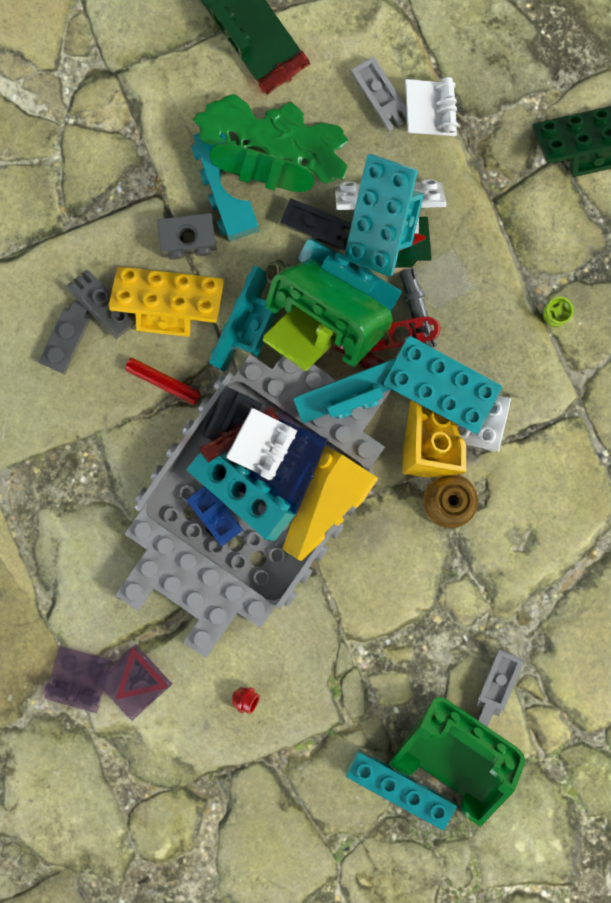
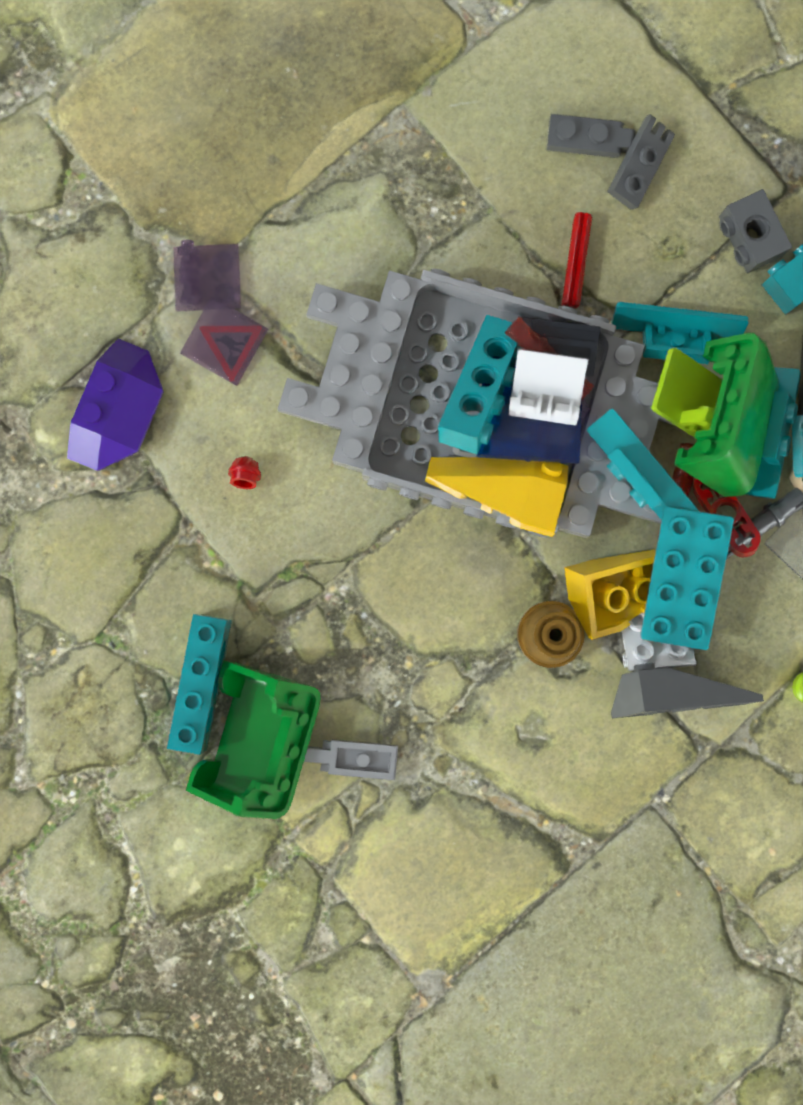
camera: 70 degrees right, 0 degrees up
(159, 785) = (115, 407): none -> dark purple wedge
(166, 299) = (670, 233): yellow bracket -> none
(214, 515) = (443, 368): blue slope -> none
(523, 428) = (667, 689): none -> dark grey wedge

